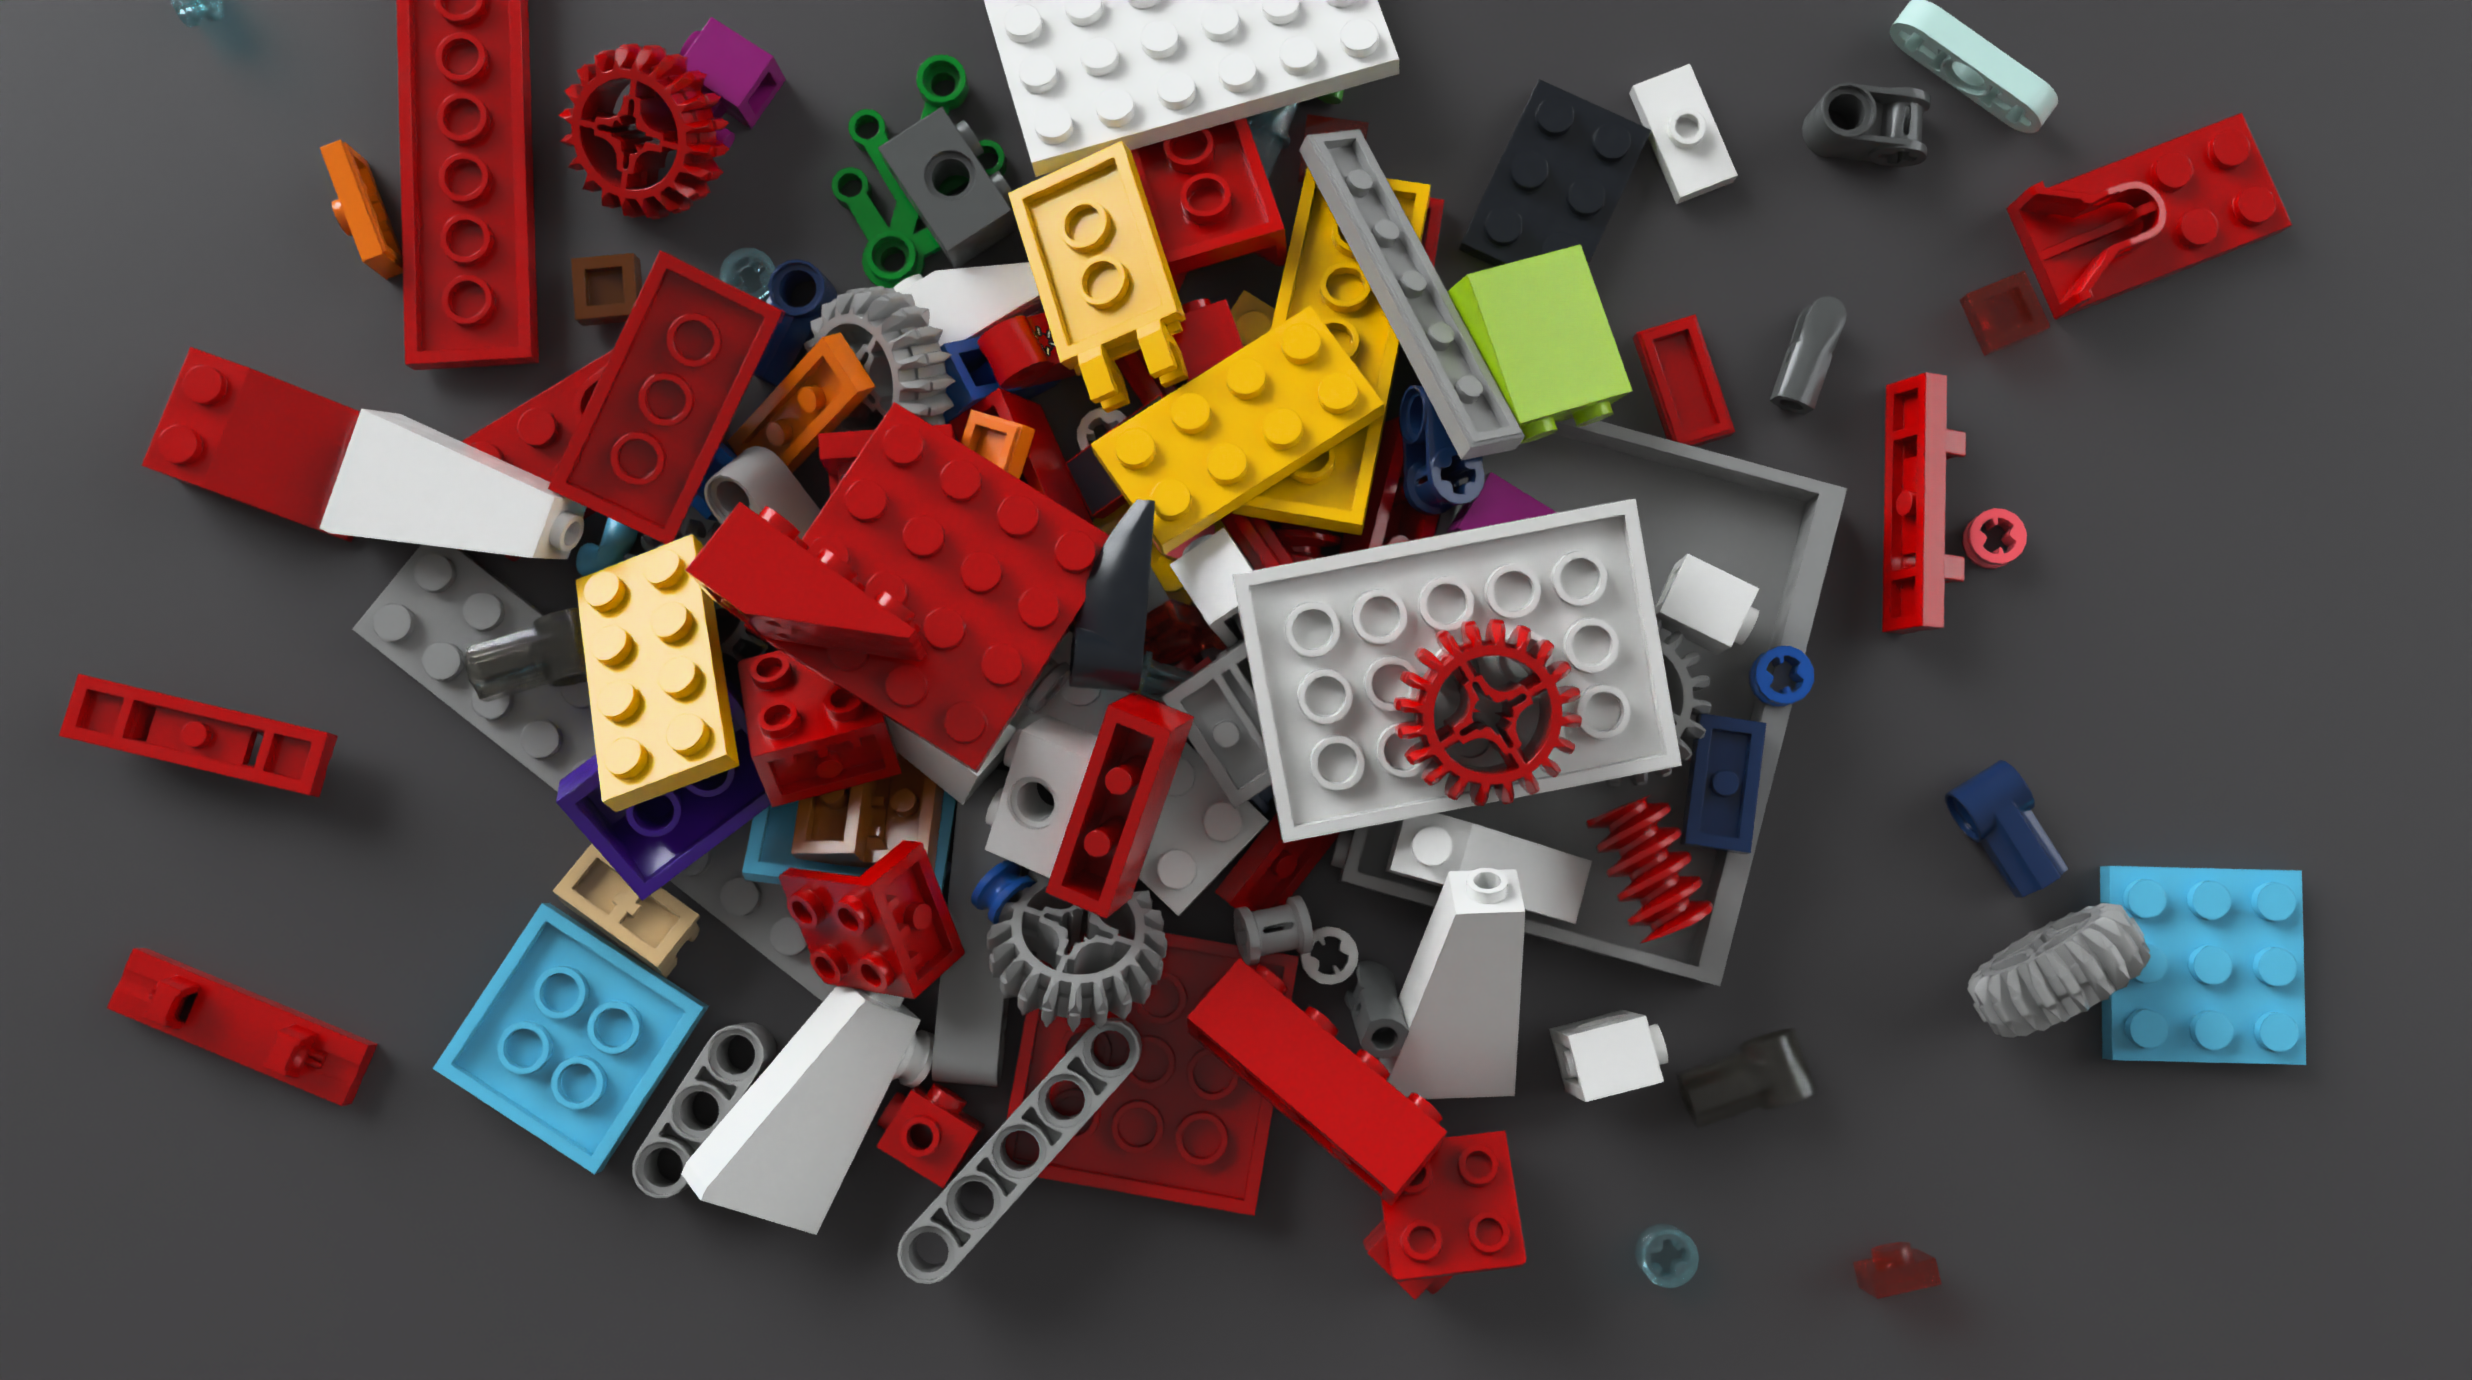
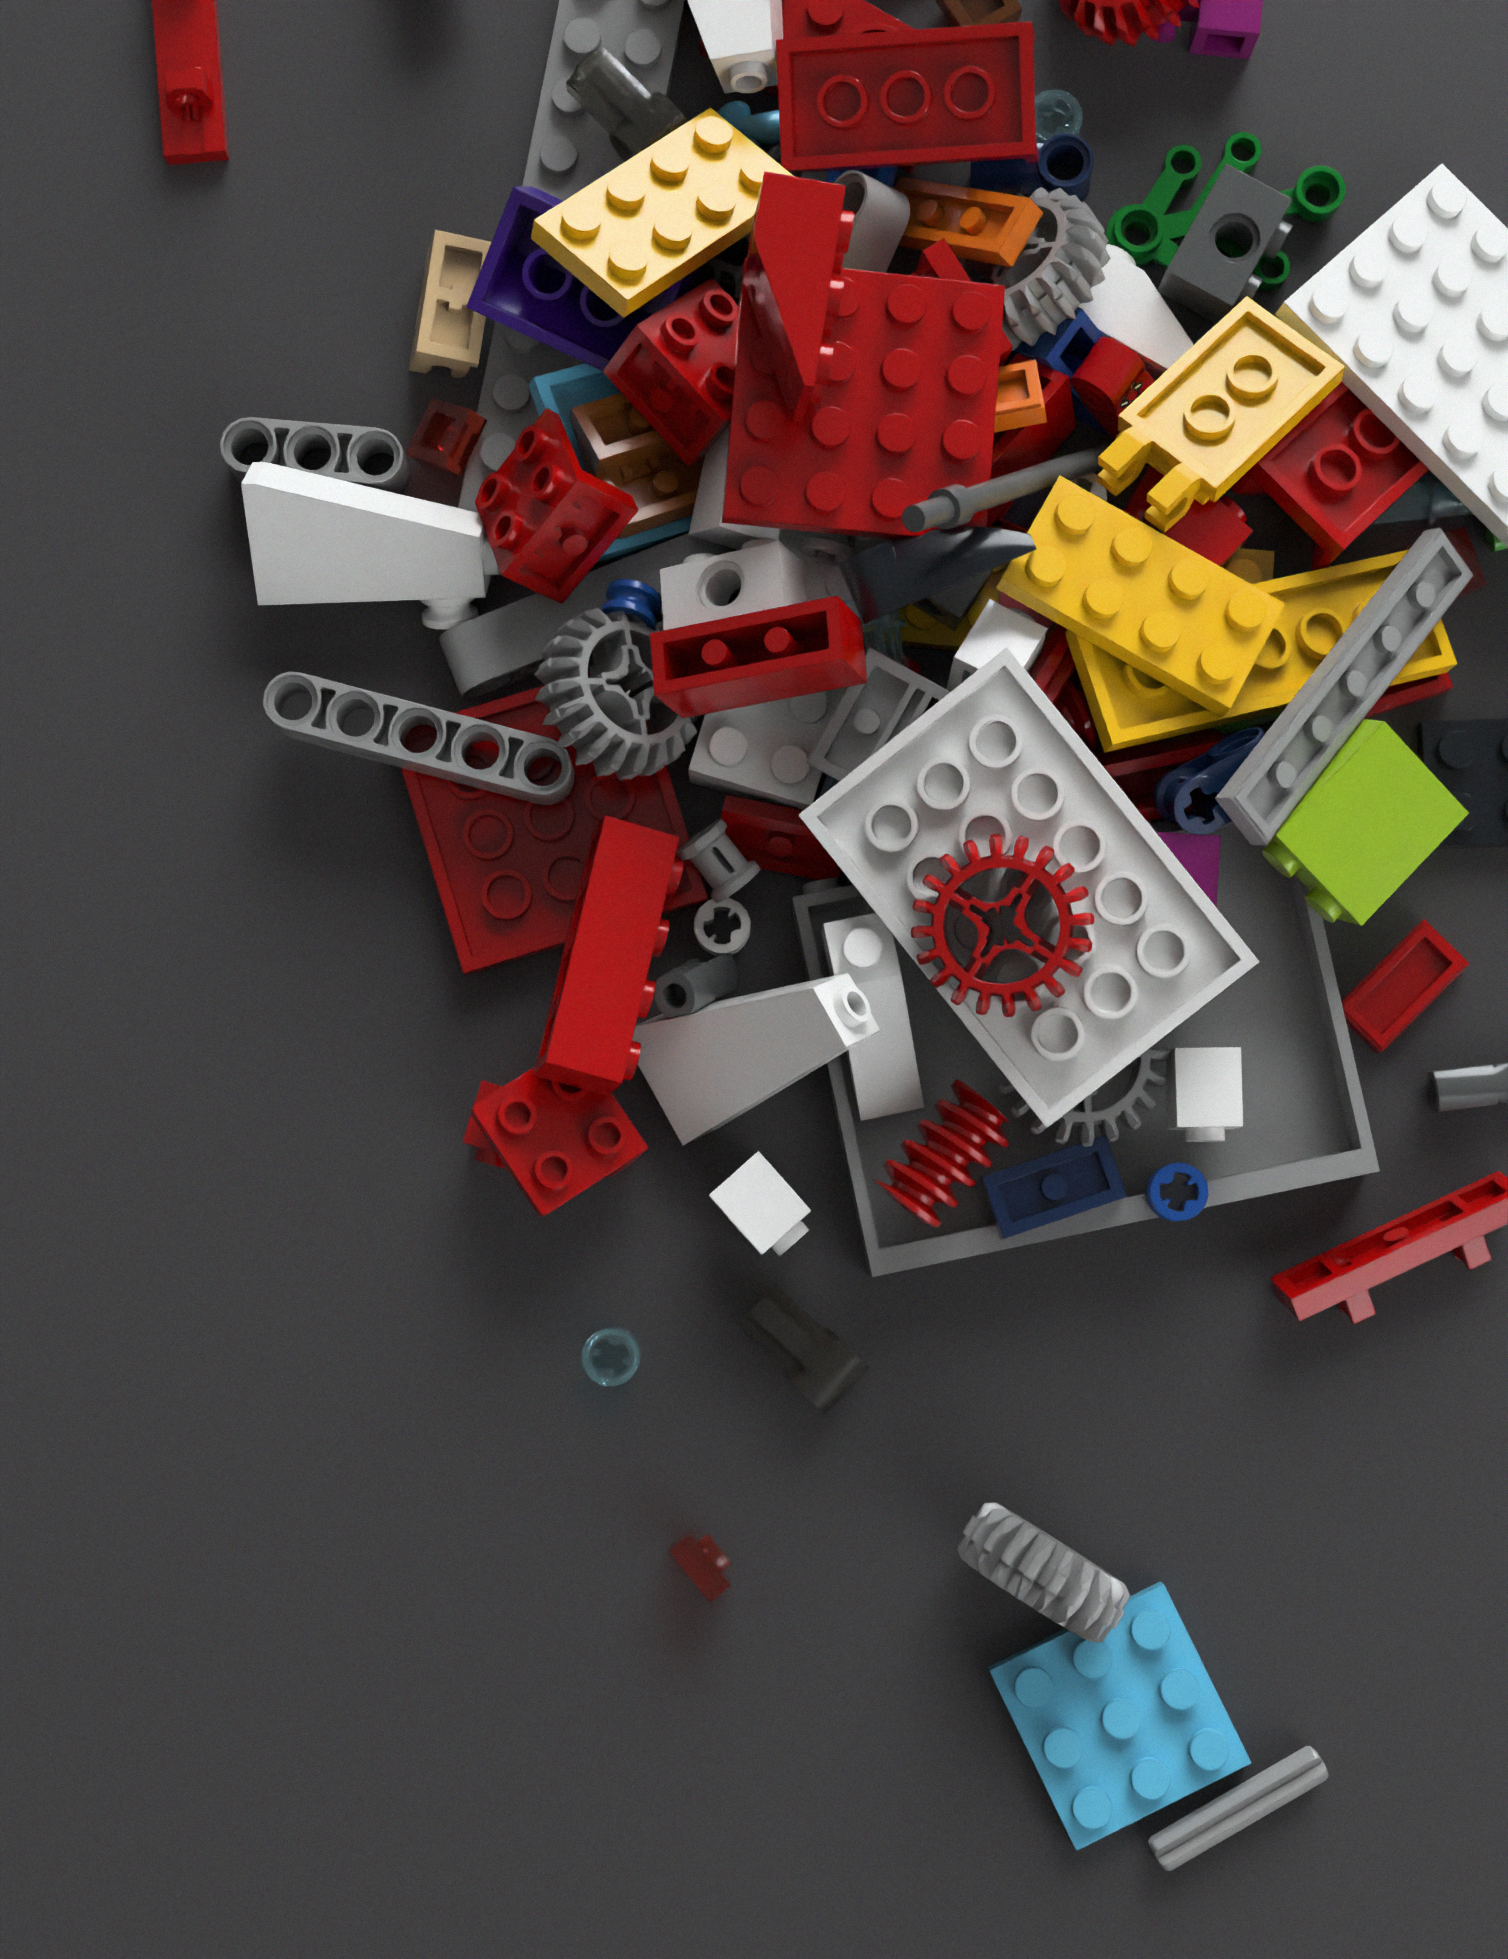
camera: 60 degrees right, 0 degrees up
(571, 1037) = (318, 315): medium azure plate -> none
(749, 977) = (446, 437): none -> clear red plate
(929, 1131) = (394, 654): red brick -> none
(1082, 551) = (957, 504): none -> dark grey bar
(1178, 631) = (932, 638): clear red plate -> none
(1998, 814) = (1157, 1459): dark blue piece -> none
(2014, 538) = (1418, 1354): coral bush -> none
(2333, 902) = (1238, 1808): none -> light grey axle

